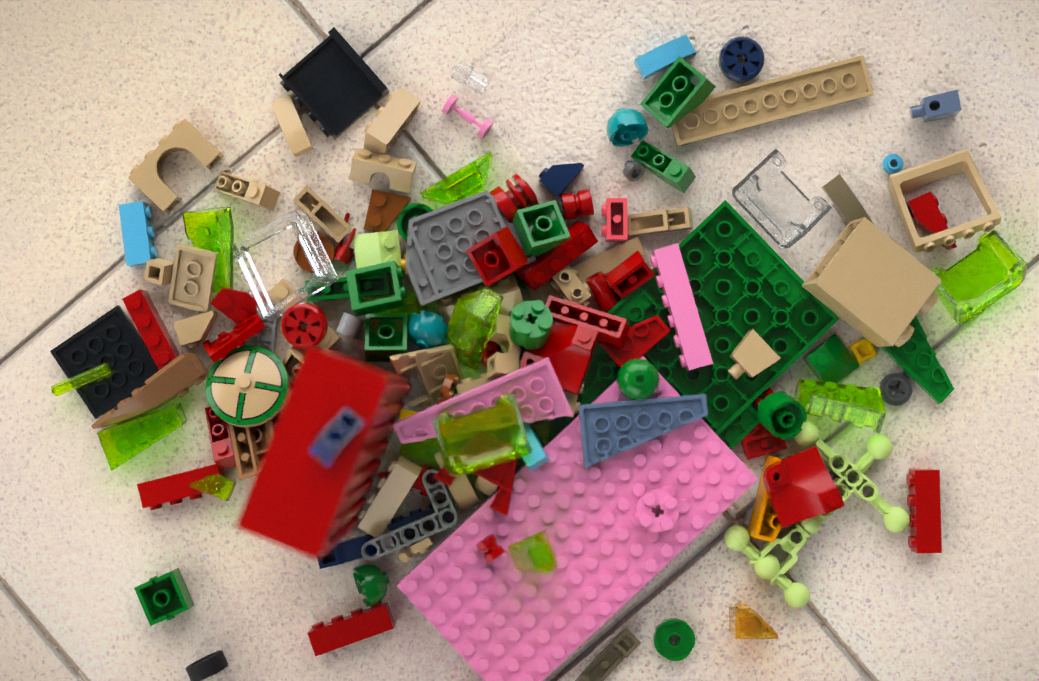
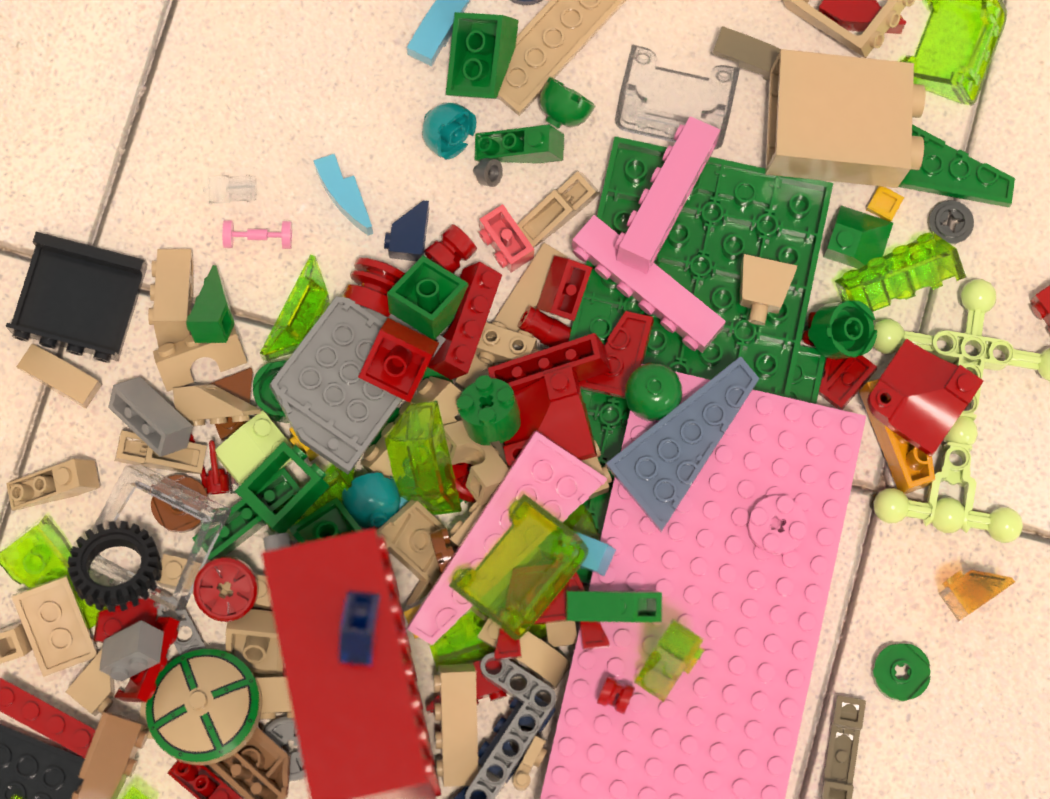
camera: 35 degrees left, 10 degrees down
(225, 325) = (131, 651): none -> light grey brick
(247, 246) = (114, 537): none -> black tyre
(328, 189) = (150, 416): none -> light grey brick
(370, 205) = (211, 403): none -> tan slope
(404, 151) = (211, 315): none -> green slope
(525, 496) = (614, 606): none -> green slope
(536, 124) = (343, 192): none -> medium azure slope
(708, 158) = (564, 105): none -> green cylinder
(732, 260) = (667, 195): none -> bright pink brick

